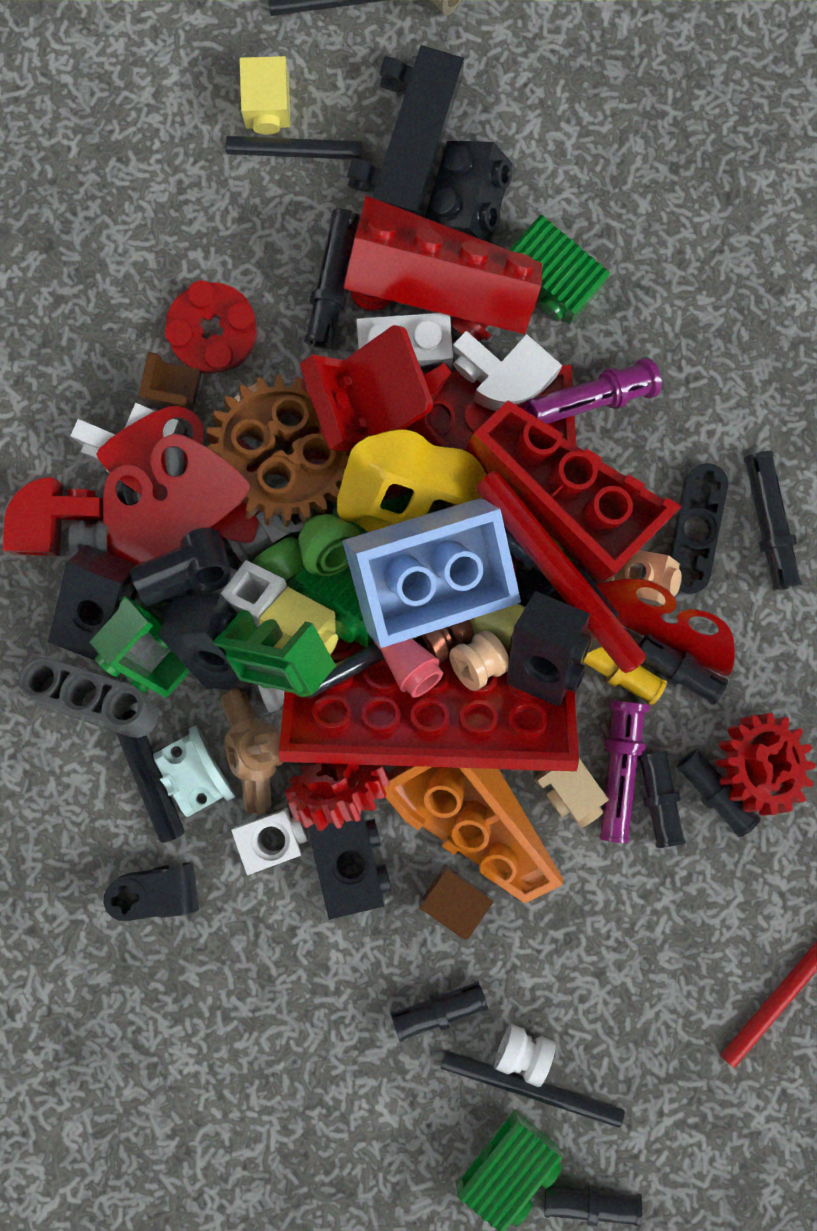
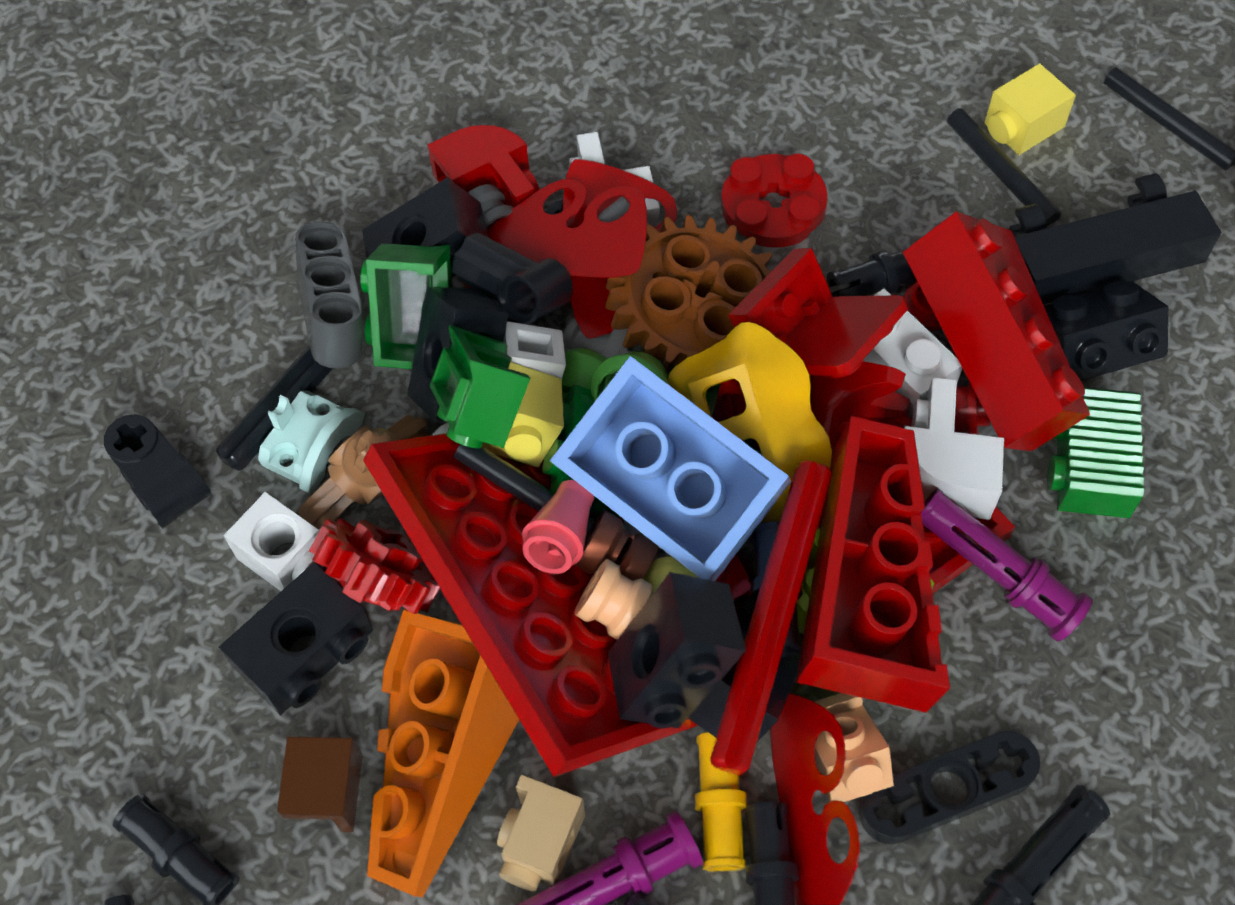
camera: 65 degrees right, 25 degrees down
(168, 384) = (688, 182): reddish brown panel -> none

